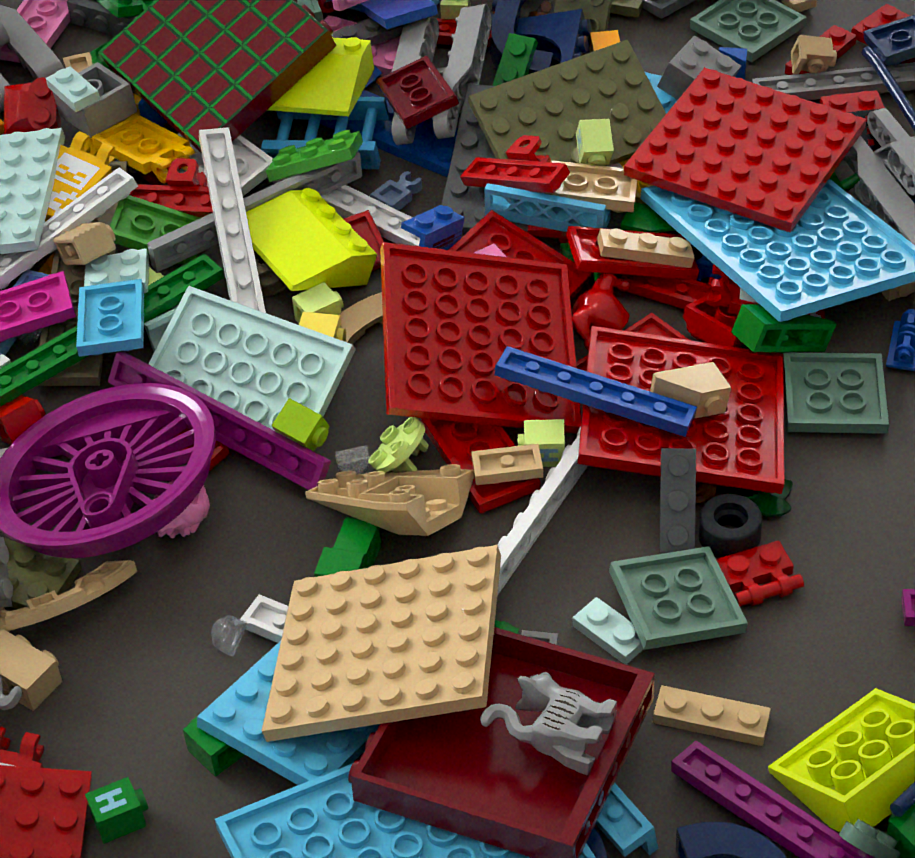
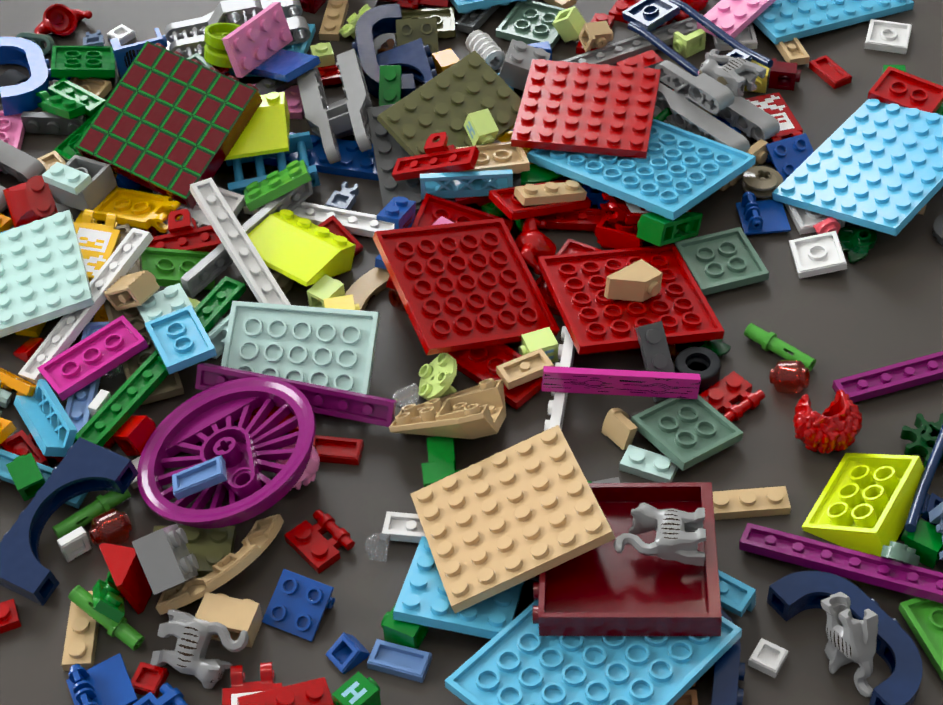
camera: 20 degrees left, 0 degrees up
(52, 489) = (199, 477): none -> medium blue tile
(105, 676) = (298, 605): none -> blue hinge
(136, 751) = (347, 653): none -> blue slope
(157, 611) = (315, 548): none -> red plate
(191, 780) = (399, 660): none -> medium blue tile
(241, 502) = (338, 449): none -> red tile
(301, 425) = (364, 379): lime brick -> none
(417, 92) = (334, 121): dark red tile -> none
(592, 570) = (619, 428): none -> tan tile
(596, 391) = (569, 300): blue plate -> none
(615, 514) = (620, 382): none -> dark pink tile
(661, 40) = (486, 48): none -> white piece
(784, 30) = (569, 24): none -> yellowish green brick
(846, 515) = (770, 342): none -> bright green pin
(847, 568) = (790, 376): none -> clear red head
(860, 652) = (832, 429): none -> red hair

